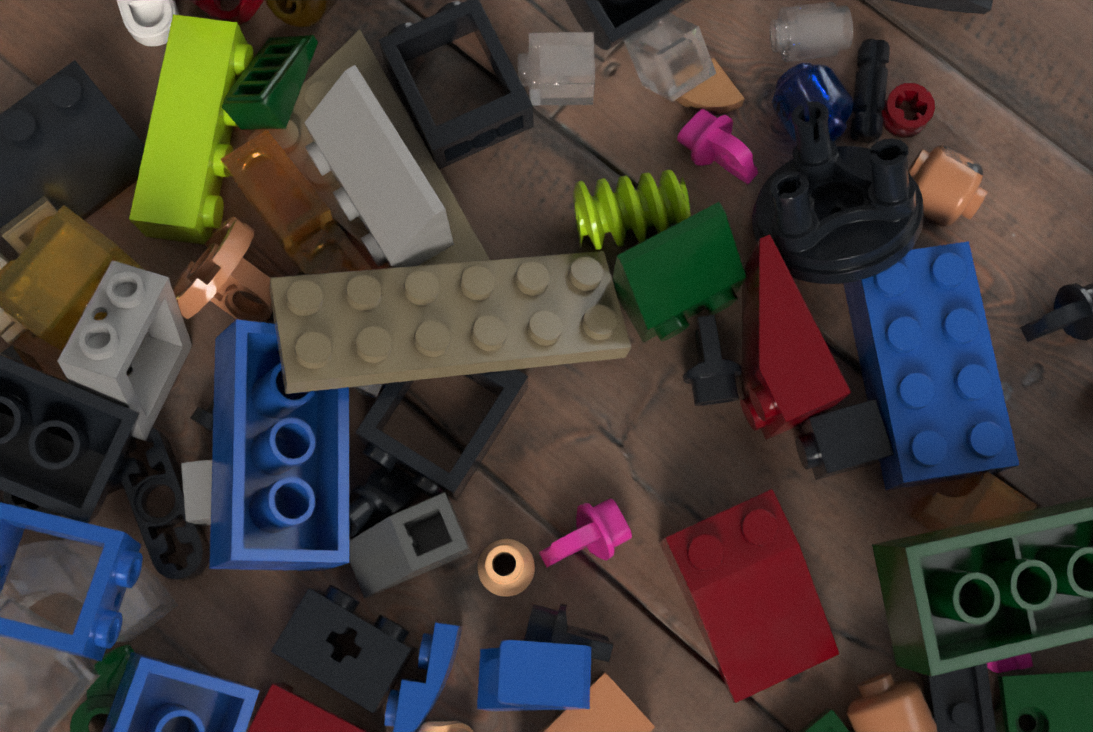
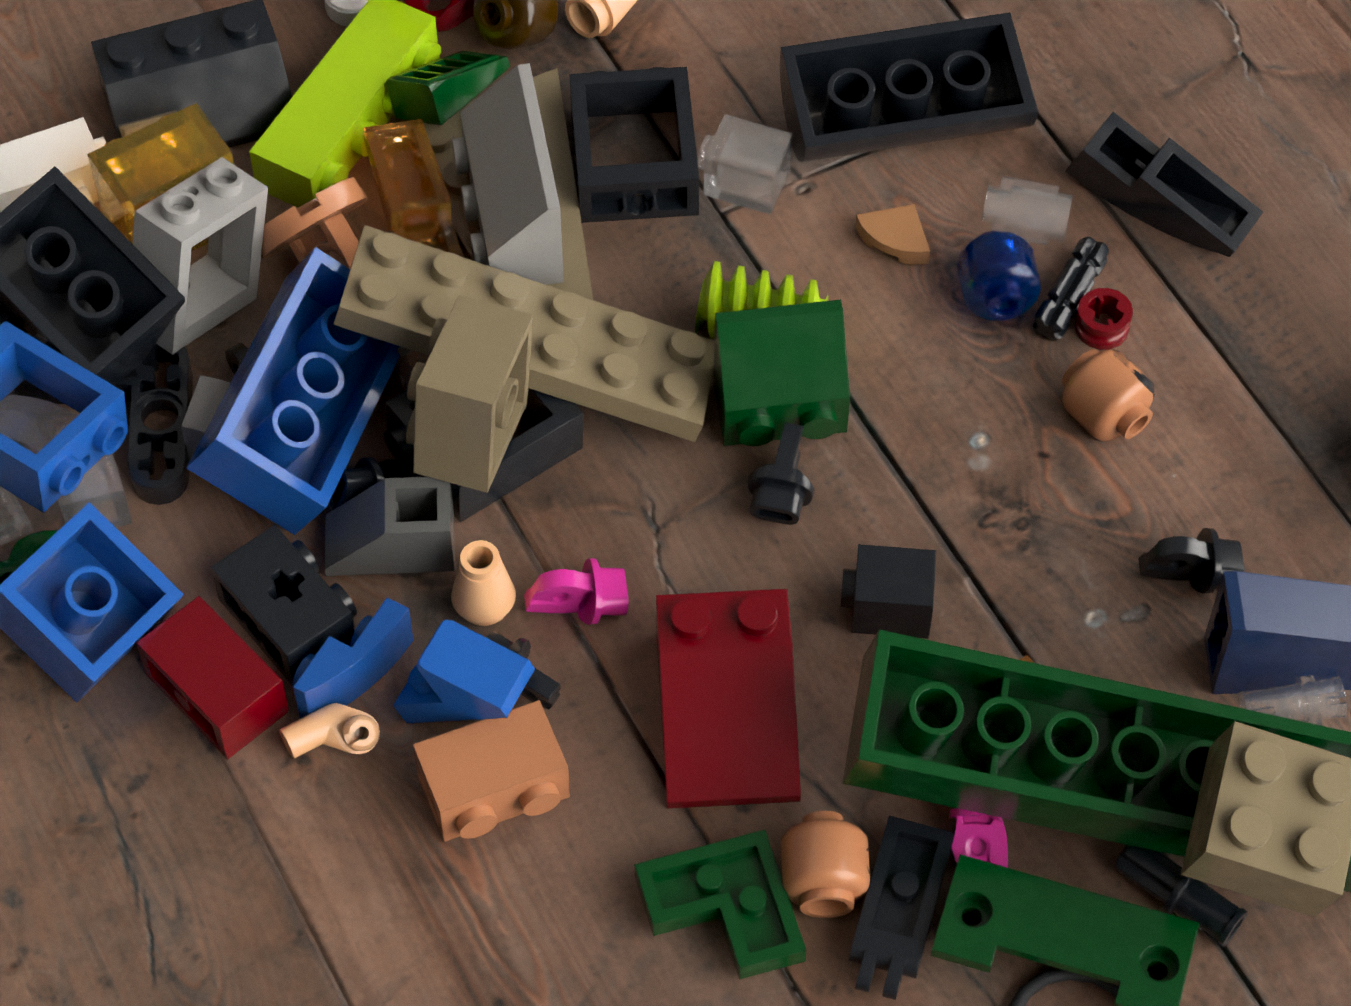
camera: 20 degrees right, 20 degrees down
(439, 420) = (470, 392): none -> dark tan brick
(670, 56) = (864, 183): clear brick -> none
(712, 141) = (881, 281): dark pink piece -> none
(784, 355) = (853, 476): dark red slope -> none
(839, 207) = (975, 365): black piece -> none
(931, 368) = (1014, 539): blue brick -> none

